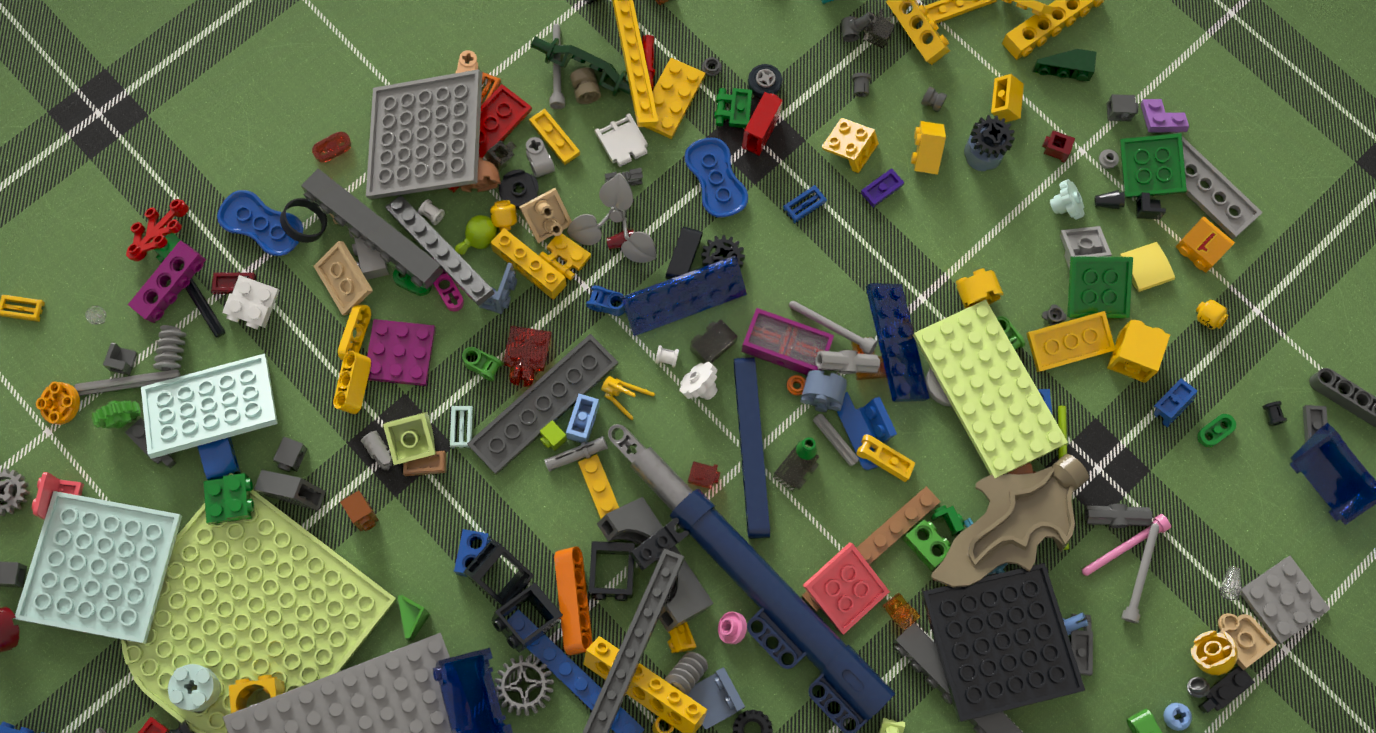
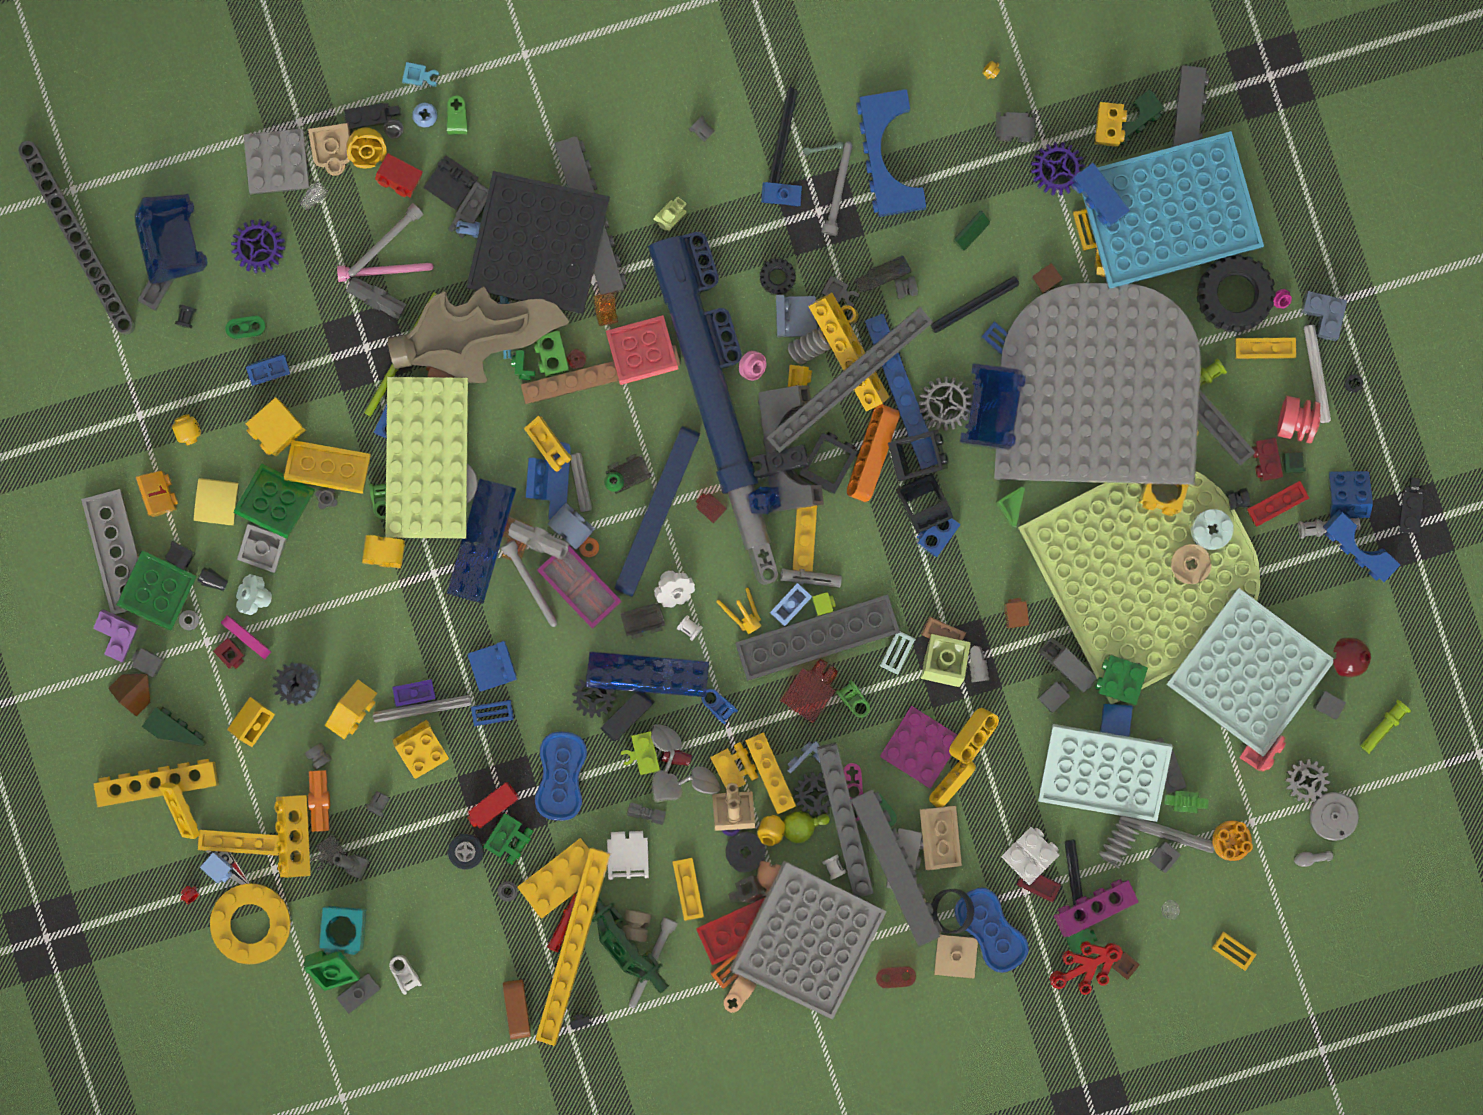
camera: 150 degrees left, 15 degrees up
(118, 248) = (1125, 966): none -> reddish brown plate
(212, 653) = (1202, 563): none -> tan plate
(282, 187) = (956, 956): none -> tan plate
(484, 259) = (806, 794): none -> black gear
(539, 160) = (713, 868): light grey piece -> none
(646, 221) = (644, 753): none -> lime brick
(655, 499) = (764, 500): none -> clear blue brick
(825, 241) = (492, 666): none -> blue bracket
(866, 179) = (422, 708): none -> light grey axle
(908, 550) = (571, 359): none -> clear red plate
(912, 64) = (319, 800): none -> orange piece
(1052, 166) = (246, 637): none -> dark pink beam
(1114, 663) = (450, 182): none -> black hinge
(1120, 76) = (132, 692): none -> reddish brown slope
(1167, 641) = (398, 176): none -> red brick
(1252, 524) = (262, 238): none -> dark purple gear

